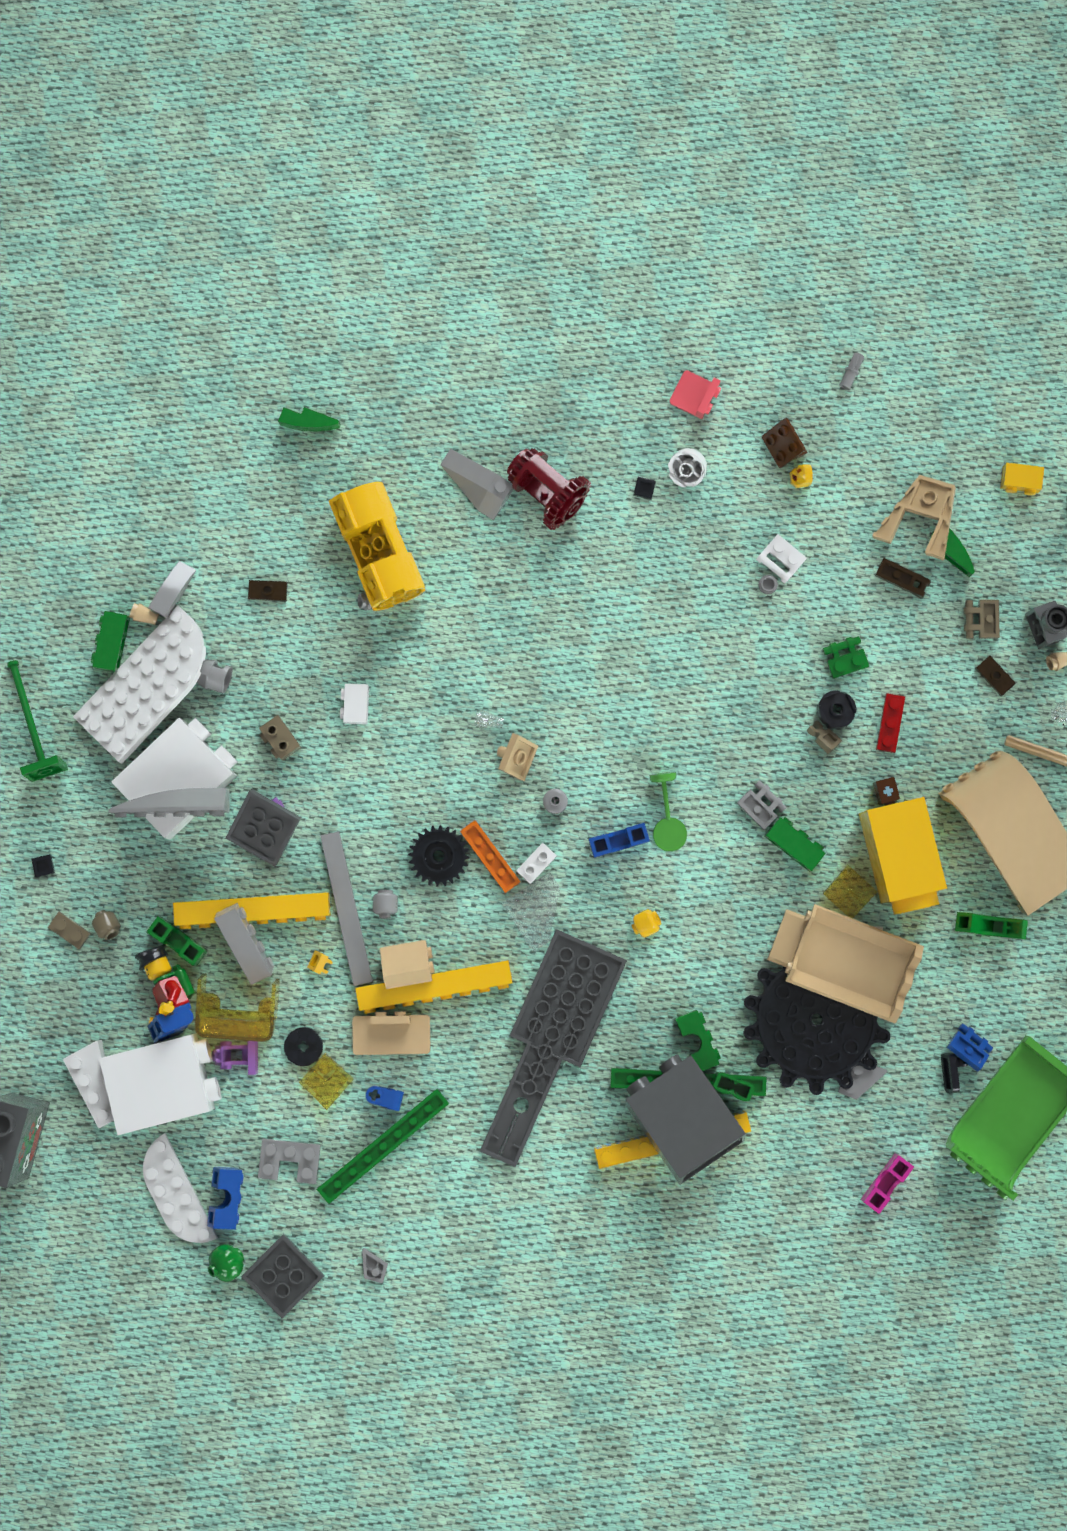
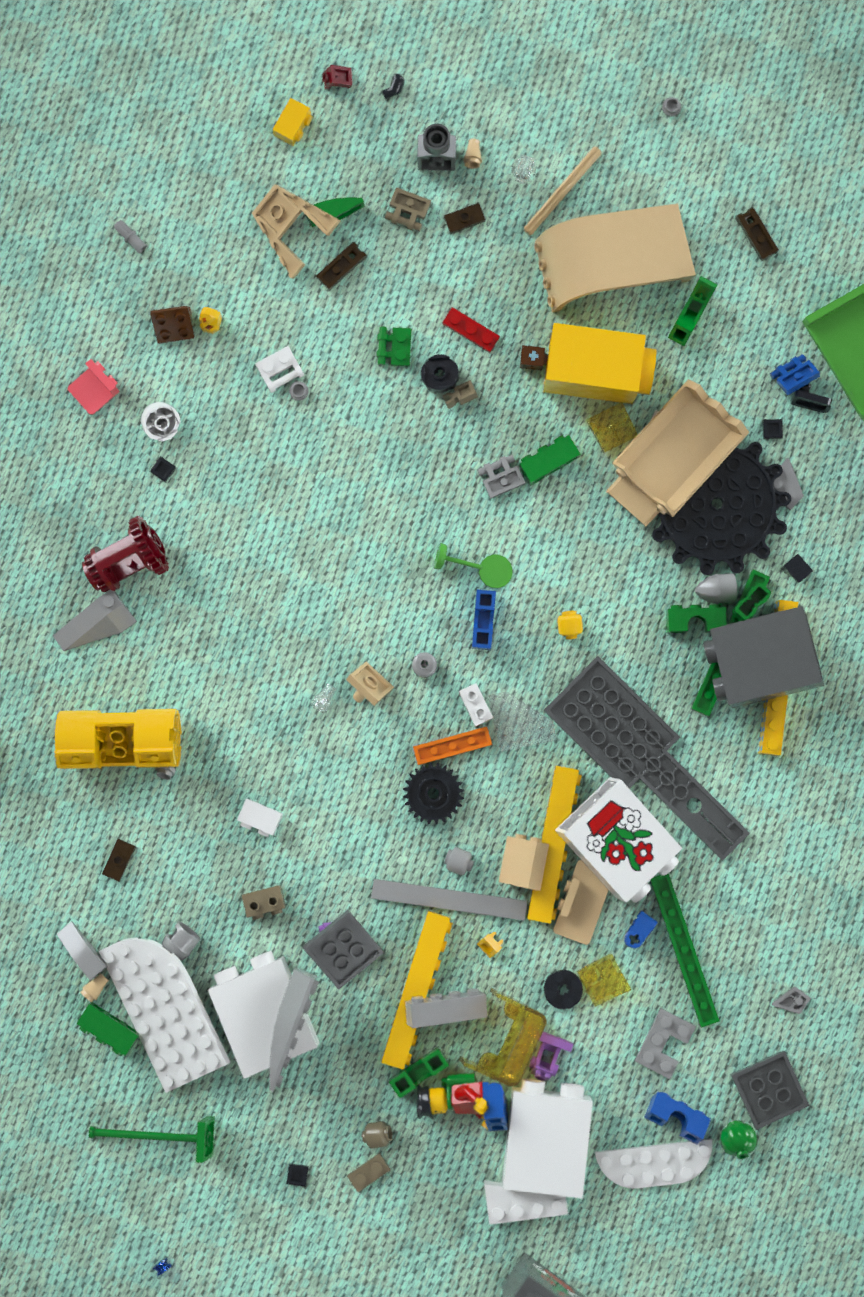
camera: 65 degrees left, 0 degrees up
(460, 1046) = (620, 841): none -> white brick
(734, 1050) = (718, 588): none -> light grey helmet
(783, 1119) = (797, 568): none -> black panel
(909, 1045) = (772, 429): none -> black tile

